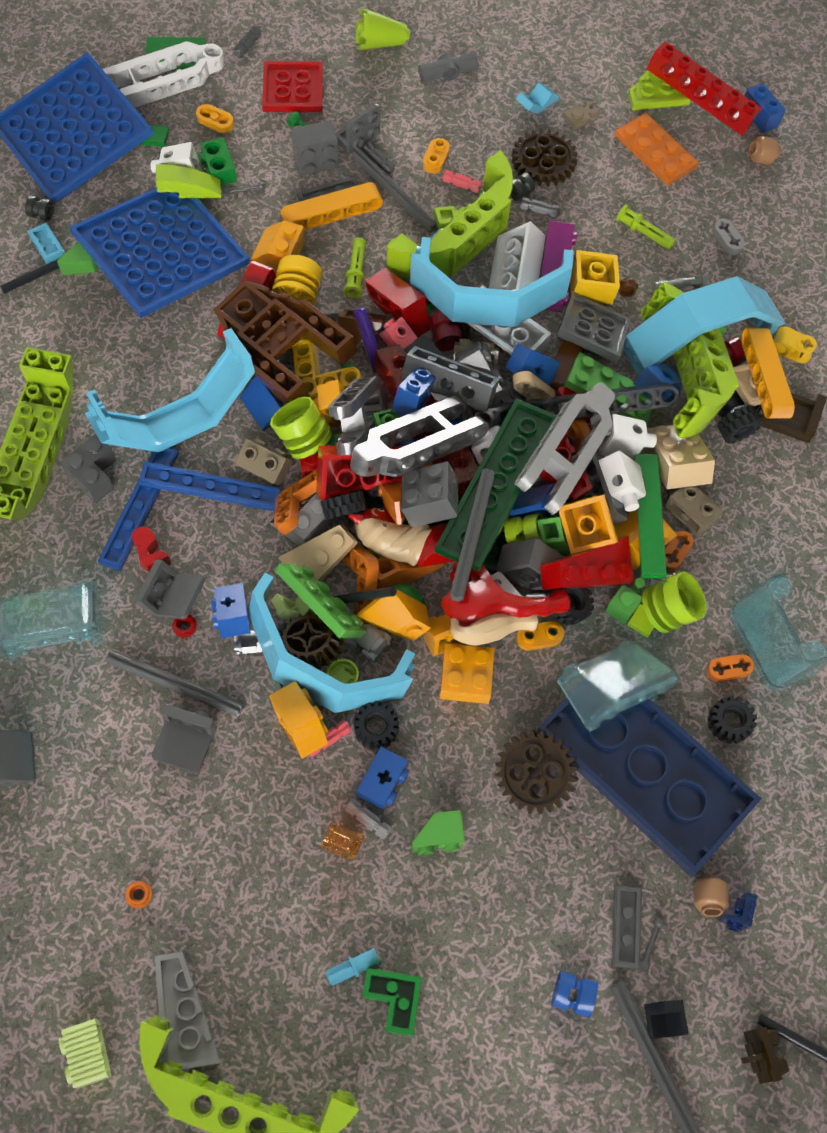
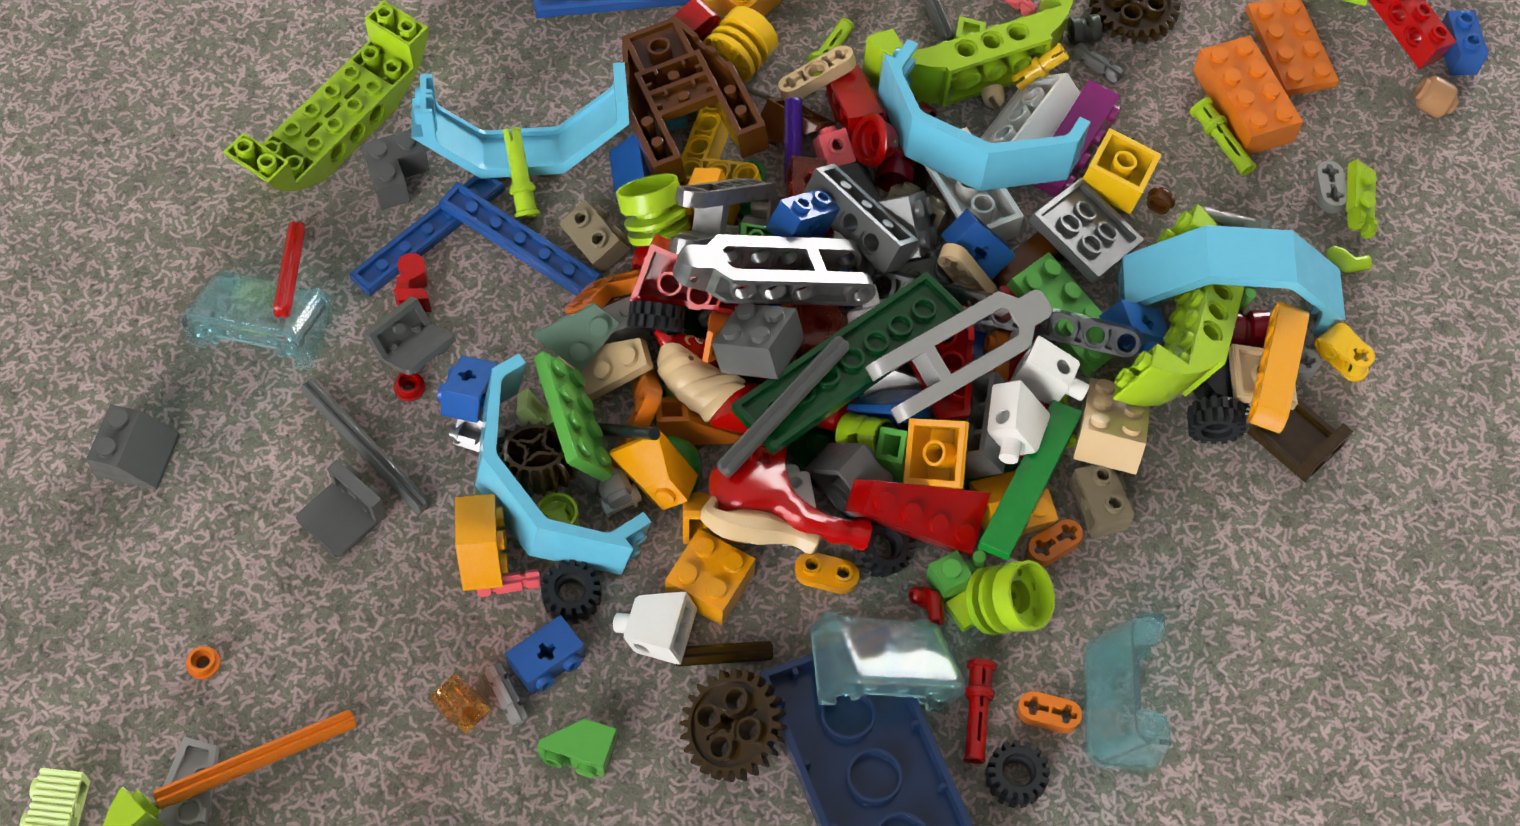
camera: 25 degrees right, 5 degrees down
(55, 577) = (289, 269): none -> red axle
(195, 448) = (522, 188): none -> lime pin
(214, 950) = (254, 759): none -> orange axle
(294, 540) = (578, 335): none -> sand green wing
(352, 296) = (841, 62): none -> tan beam
(426, 318) = (874, 140): none -> red hat
(449, 723) = (658, 625): none -> white torso
(483, 255) = (993, 94): none -> tan hinge
(500, 722) = (727, 653): none -> dark brown axle
(508, 224) = (1040, 67): none -> yellow pin
(618, 625) = (930, 601): none -> red arm
(648, 192) = (1247, 95): none -> orange brick
(690, 698) = (979, 695): none -> red pin
(752, 237) = (1361, 199): none -> lime hinge
(764, 283) = (1347, 262): none -> lime arm

